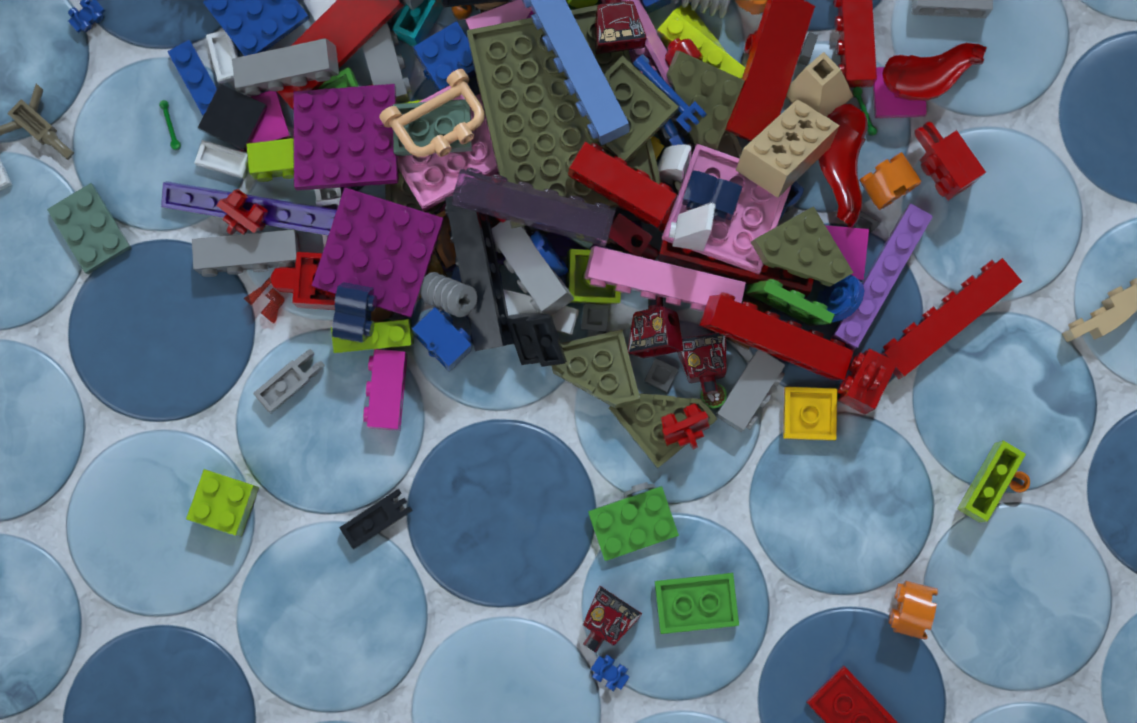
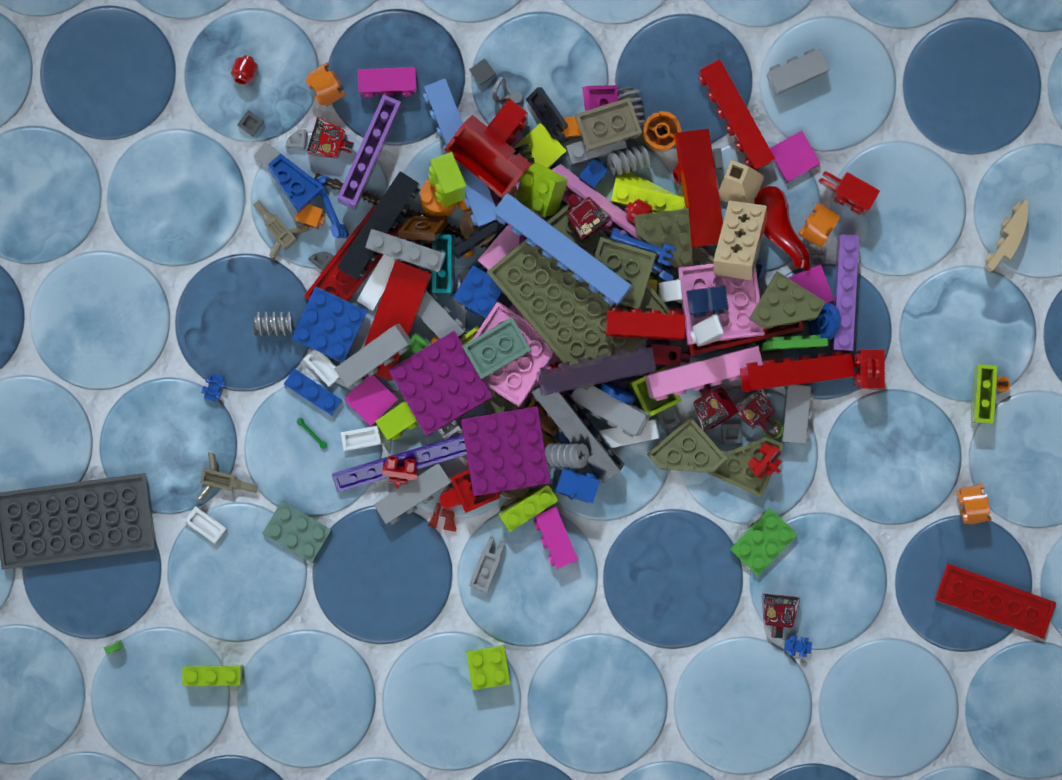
camera: 25 degrees left, 5 degrees up
(232, 117) = (354, 407): black tile -> none
(353, 312) = (512, 499): dark blue brick -> none
(374, 520) = (593, 626): black hinge -> none
(440, 144) = (511, 359): light nougat bar -> none
(536, 339) = (638, 454): black slope -> none
(696, 603) = (831, 572): bright green plate -> none
(810, 413) = (843, 409): yellow plate -> none
(857, 92) = (766, 171): green hinge -> none
(930, 77) = (810, 139): red animal -> none
(952, 317) = (904, 297): red brick -> none

